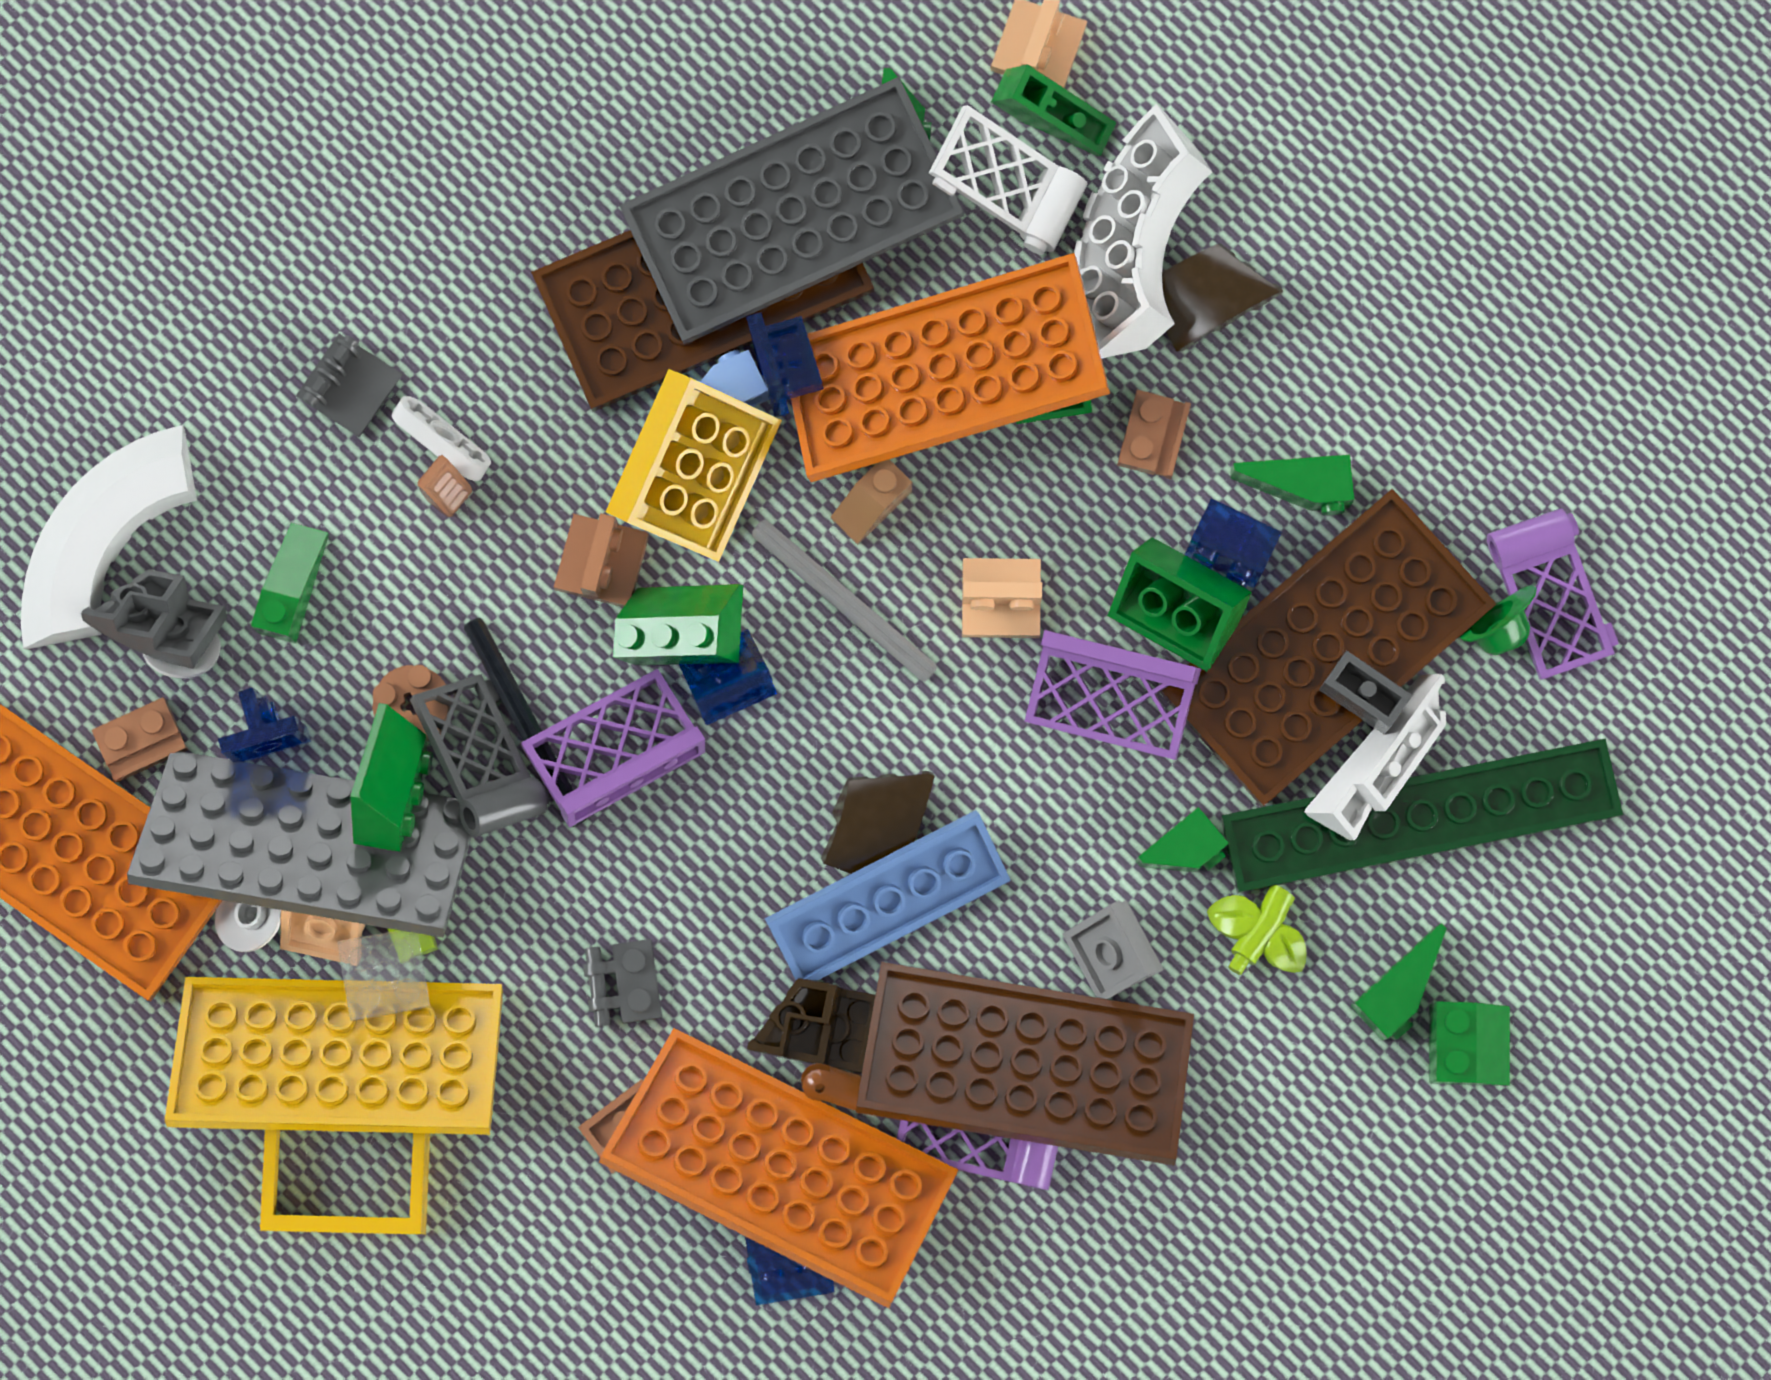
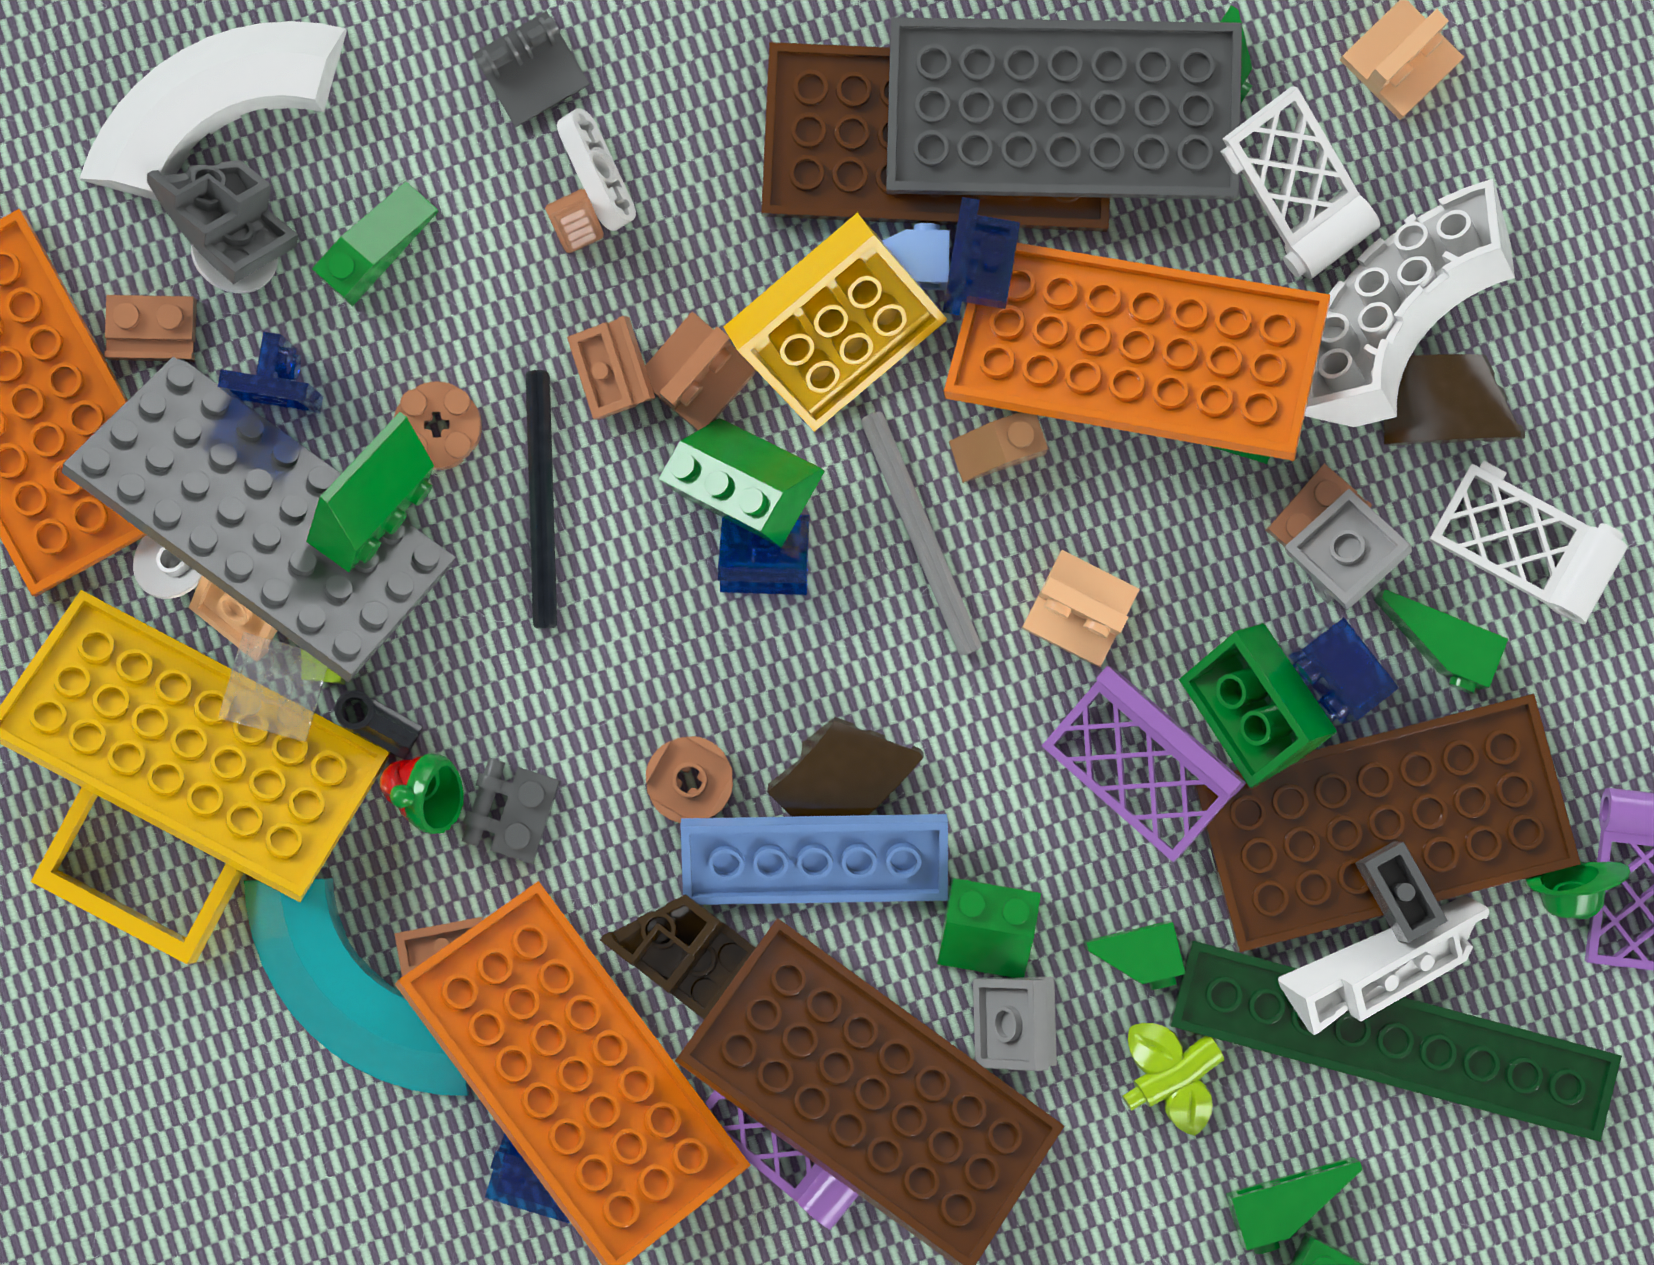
camera: 25 degrees right, 5 degrees up
(485, 965) = (381, 726): none -> black piece
(494, 803) = (468, 568): dark grey piece -> none
(530, 589) = (611, 367): none -> nougat plate
(546, 1000) = (425, 791): none -> green piece
(558, 1202) = (340, 994): none -> teal brick
(623, 778) = (610, 605): medium lavender fence -> none
(741, 870) = (682, 755): none -> nougat plate
(831, 1085) = (666, 1018): dark orange piece -> none
(1052, 109) = (1382, 132): green slope -> none
(1054, 885) = (988, 928): none -> green slope
(1188, 447) = (1347, 550): none -> light grey bracket
(1380, 379) = (1581, 570): none -> white piece

